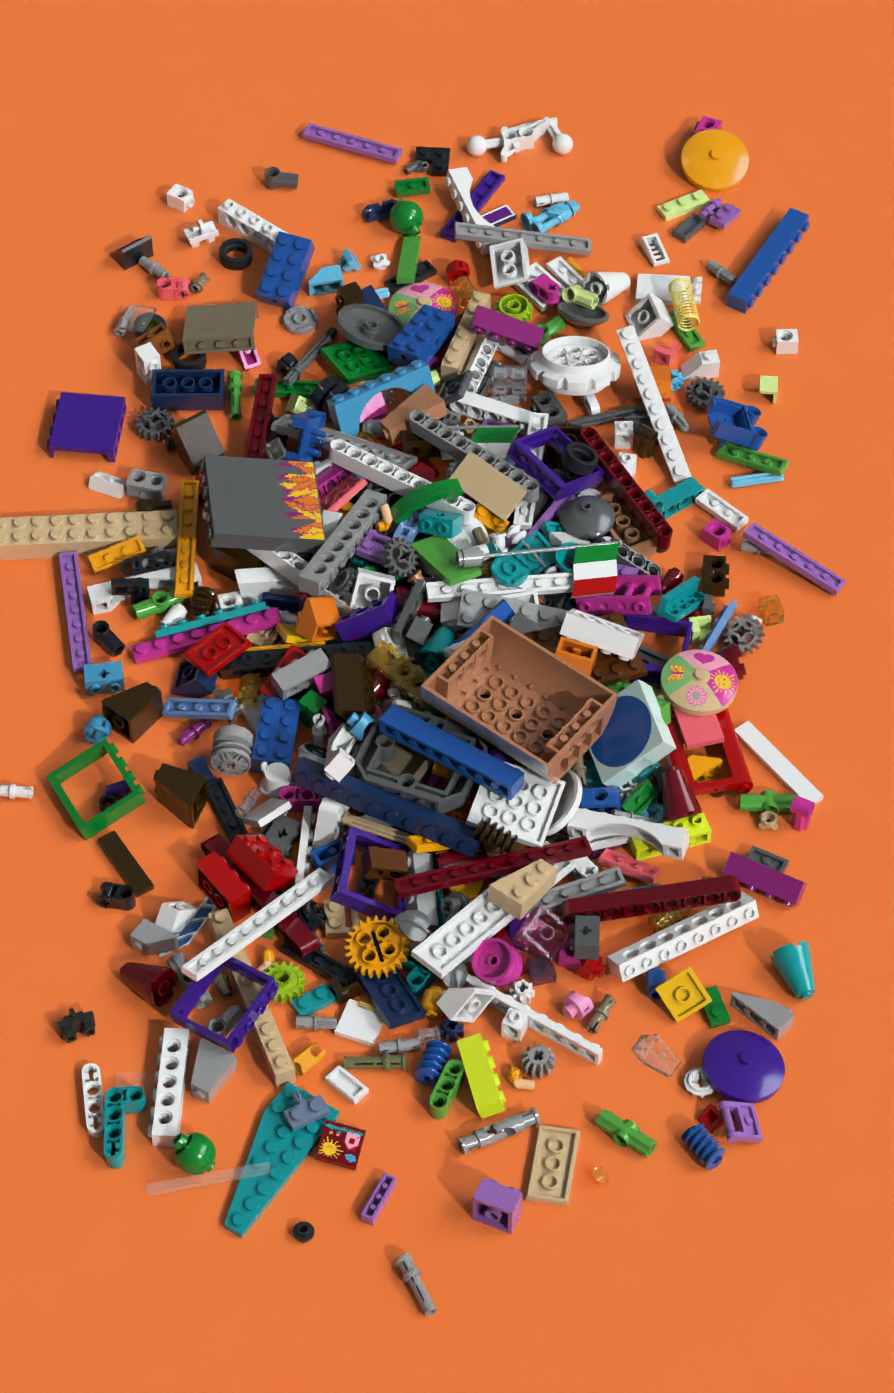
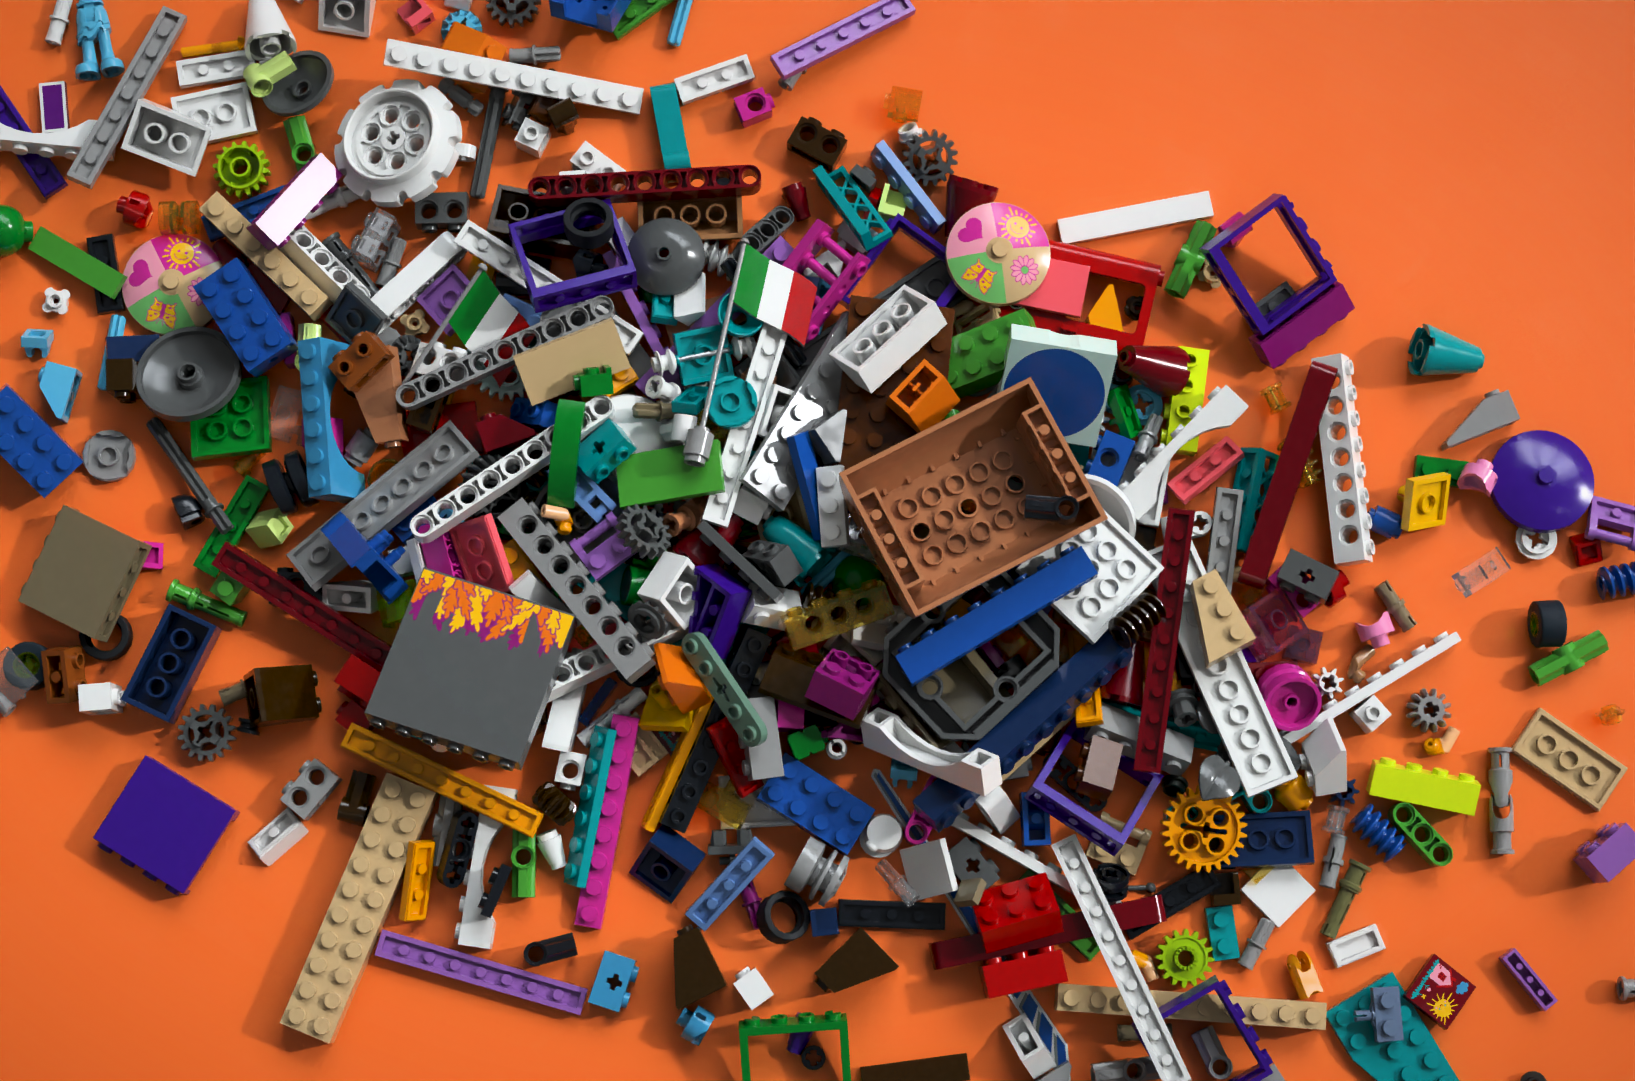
camera: 70 degrees left, 30 degrees up
(136, 746) = (752, 987): none -> white brick
(197, 733) = (801, 912): none -> black tyre
(217, 649) = (659, 825): red tile -> none
(247, 398) = (229, 589): none -> bright green brick
(261, 829) = (969, 892): none -> dark tan tile
(312, 752) = (858, 764): slope -> none
(321, 635) = (732, 702): none -> sand green piece
(358, 724) = (889, 705): dark azure piece -> none
(359, 687) = (842, 683): none -> magenta slope
(425, 389) = (360, 360): none -> dark orange brick
(482, 499) = (594, 382): none -> green brick
(534, 728) = (1047, 508): none -> black piece
(545, 289) = (230, 113): dark pink piece -> none
(548, 1006) = (1361, 657): none -> medium nougat arm
(627, 394) = (461, 96): none -> light grey axle
(641, 1104) = (1547, 623): none -> black wheel
(721, 1021) = (1478, 477): none -> bright pink piece
(760, 818) = (1309, 247): none -> dark purple window

